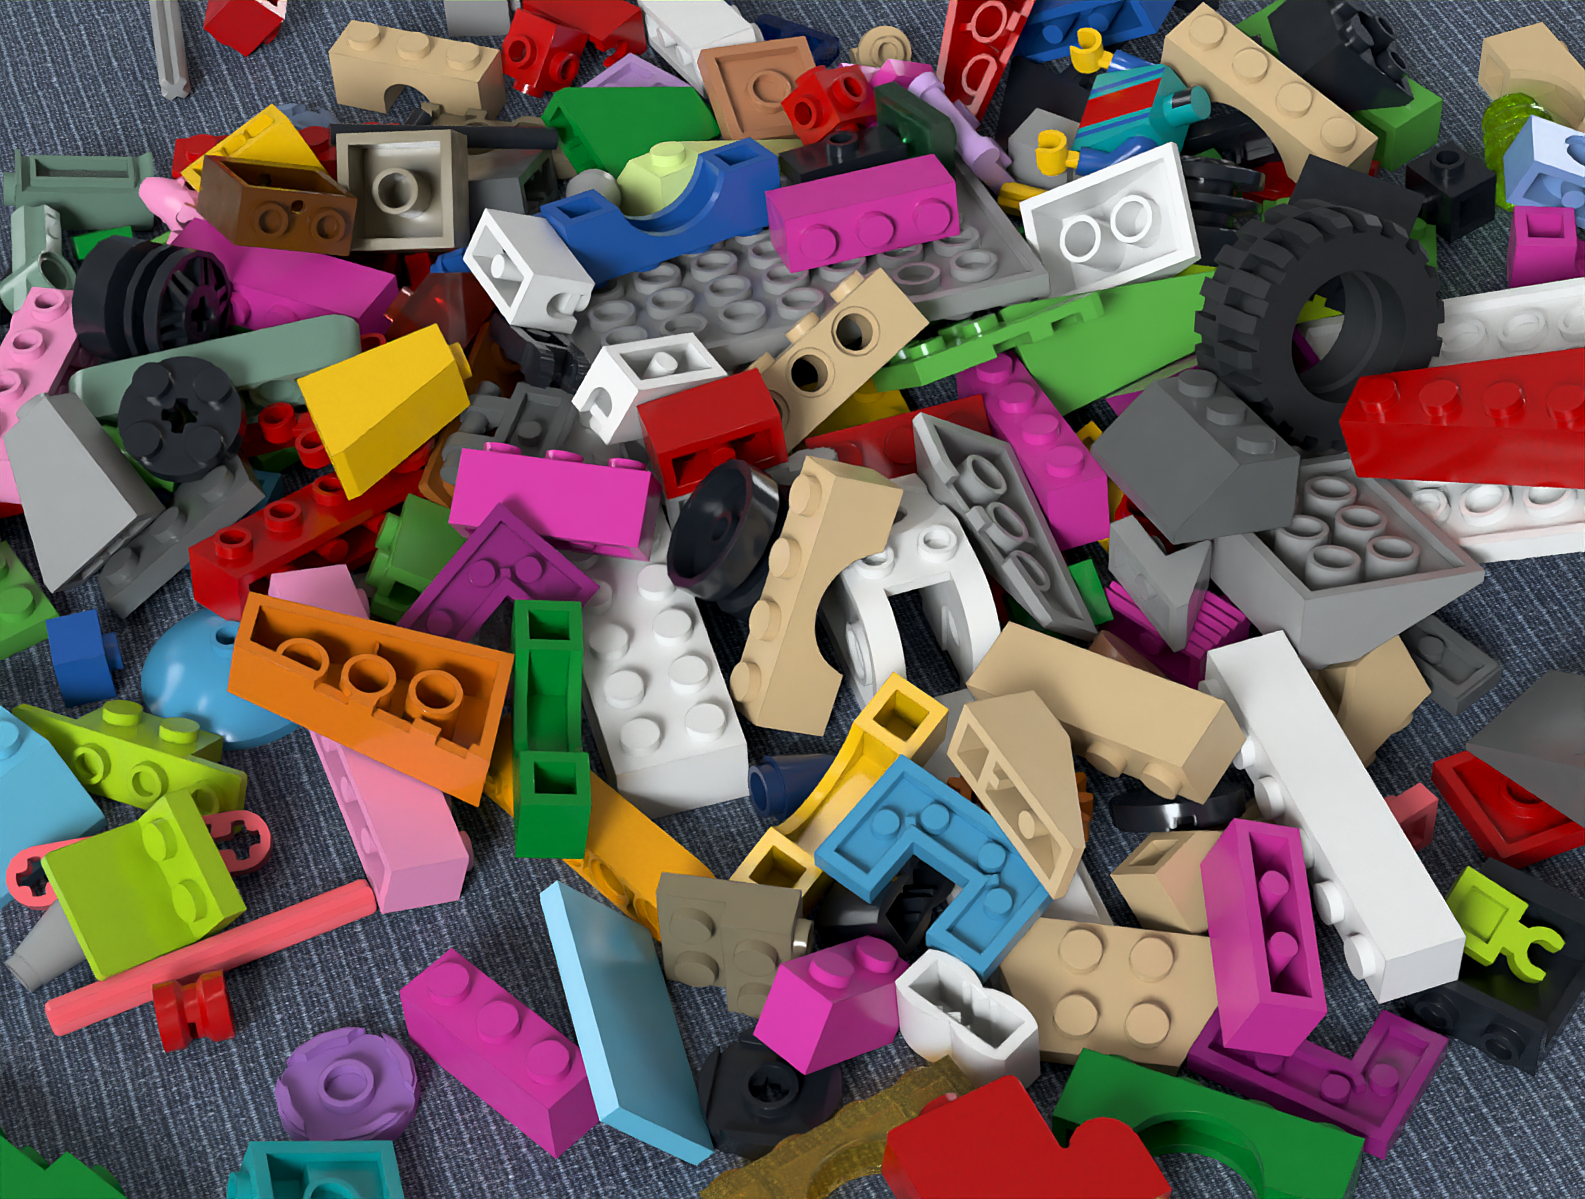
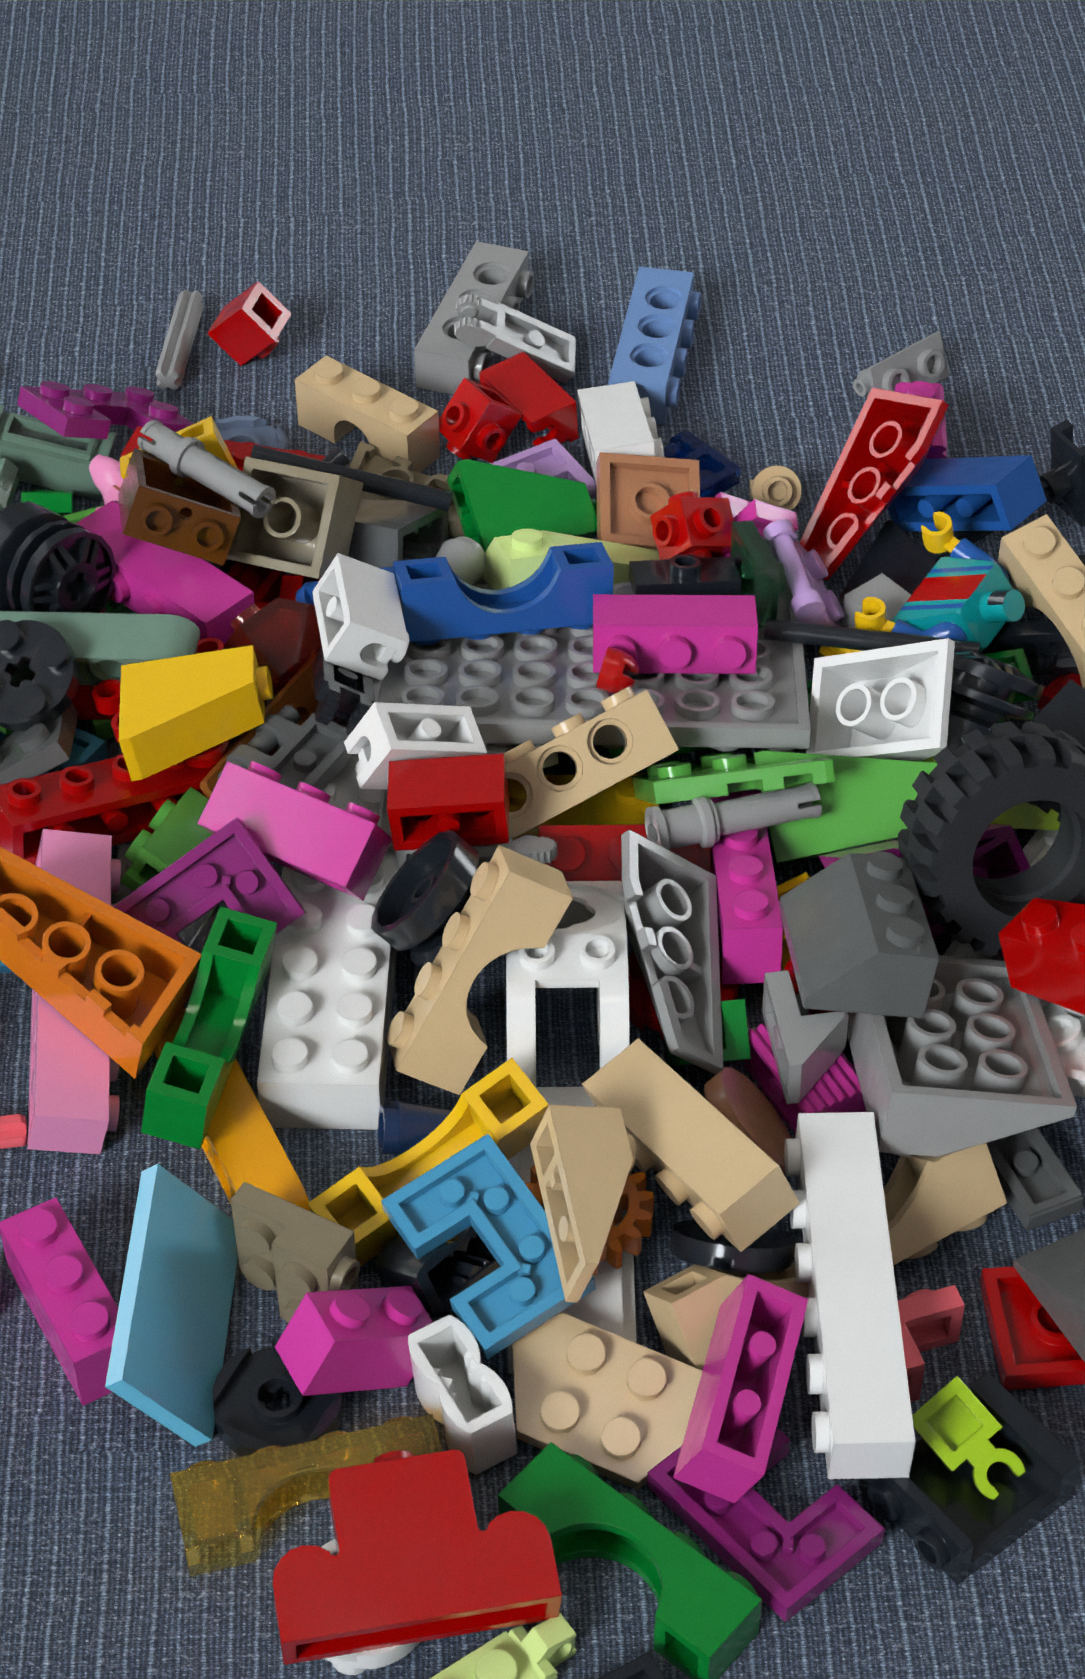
camera: 15 degrees right, 0 degrees up
(123, 134) = (95, 408): none -> magenta plate
(274, 151) = (190, 459): none -> light grey pin
(822, 264) = (612, 671): none -> red hinge
(982, 389) = (707, 821): none -> light grey pin
(1030, 177) = (848, 637): none -> black bar

